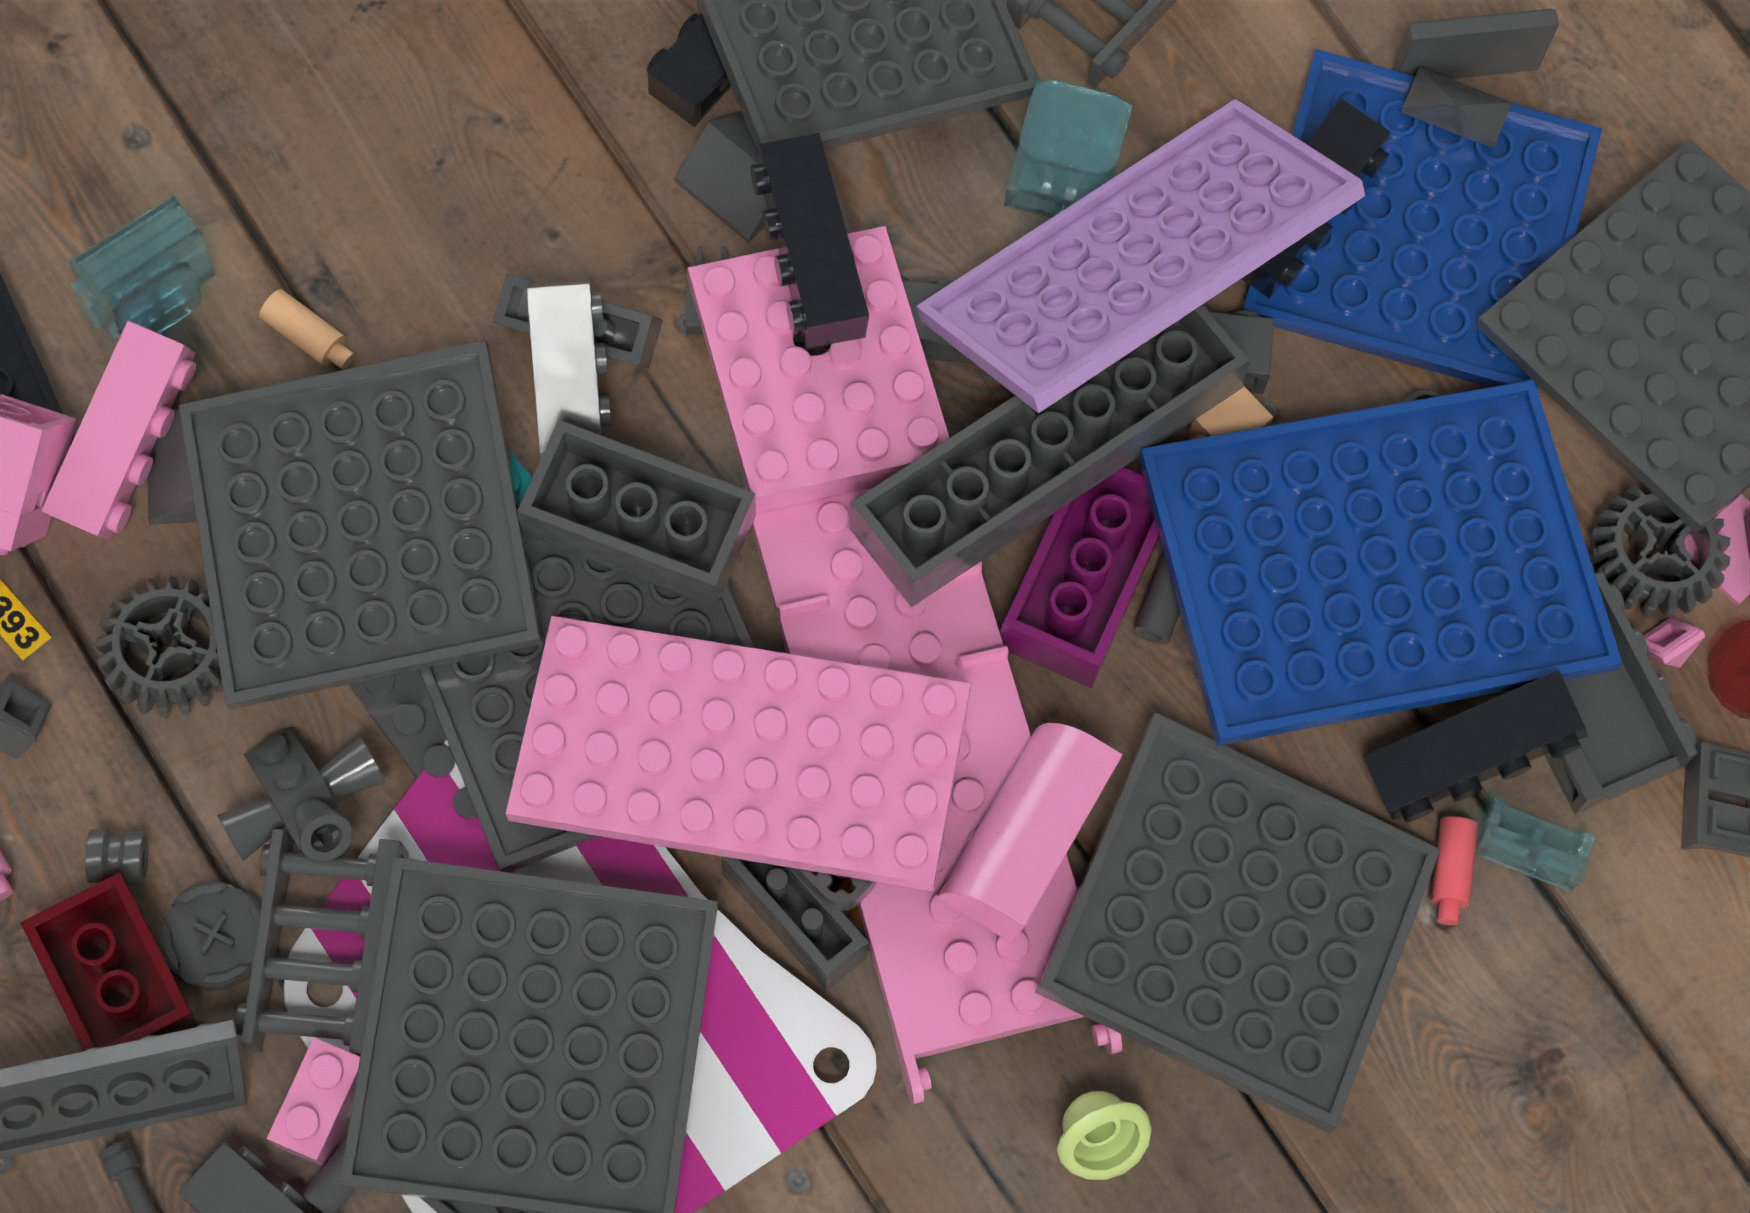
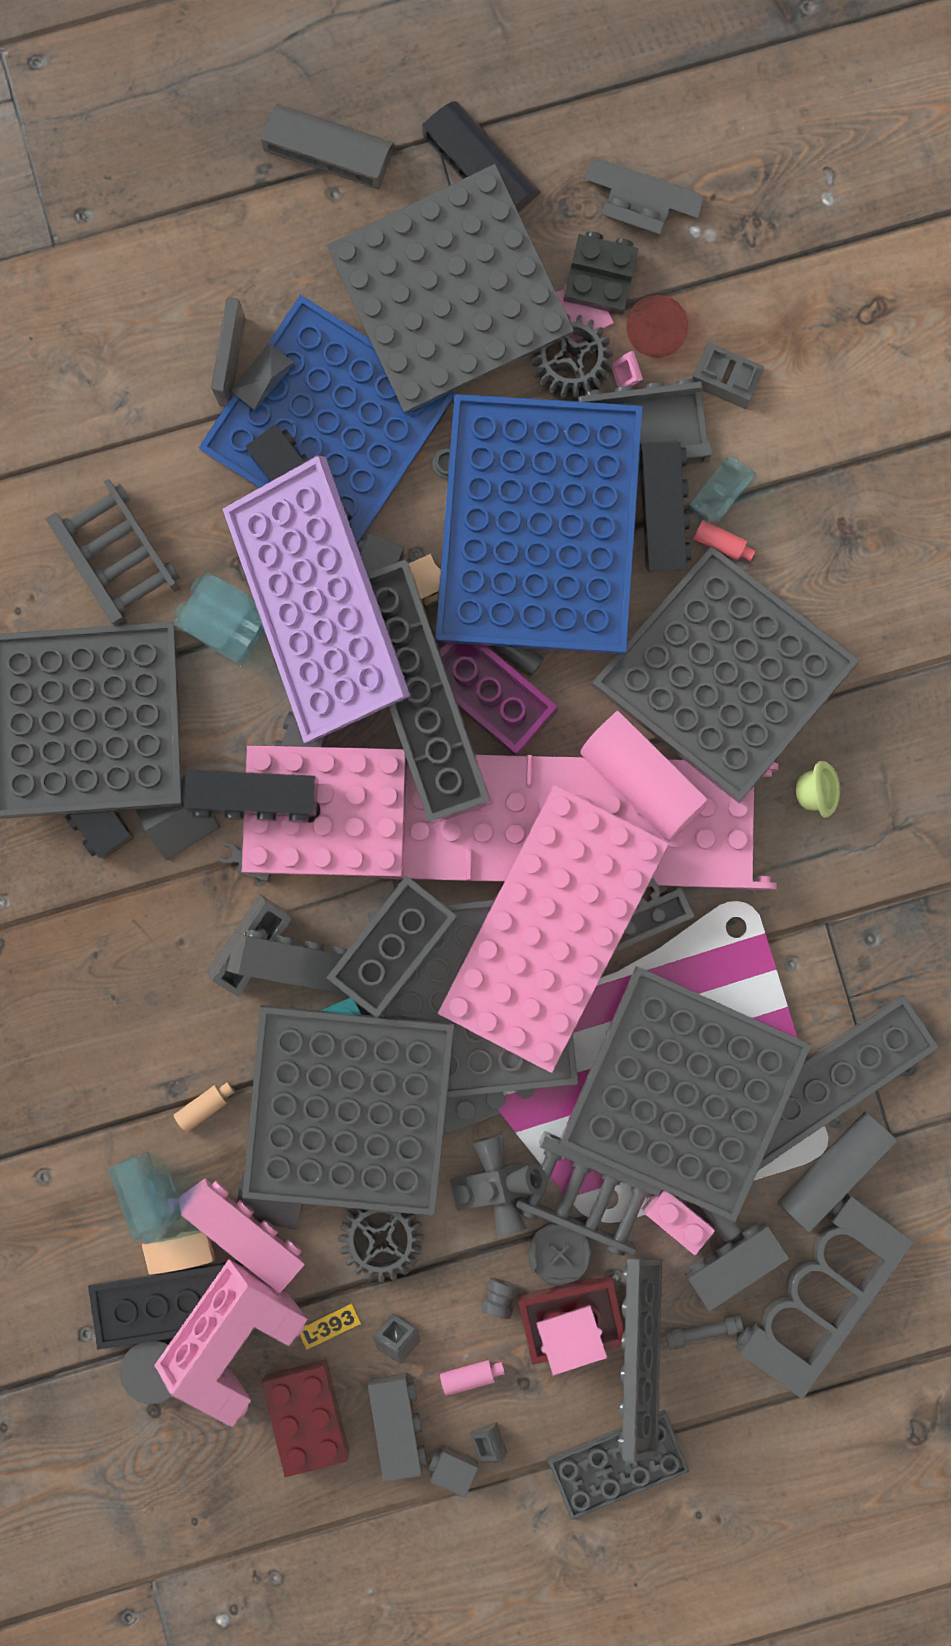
camera: 65 degrees left, 15 degrees up
(67, 351) = (178, 1252): none -> light nougat slope
(75, 972) = (571, 1340): none -> bright pink piece

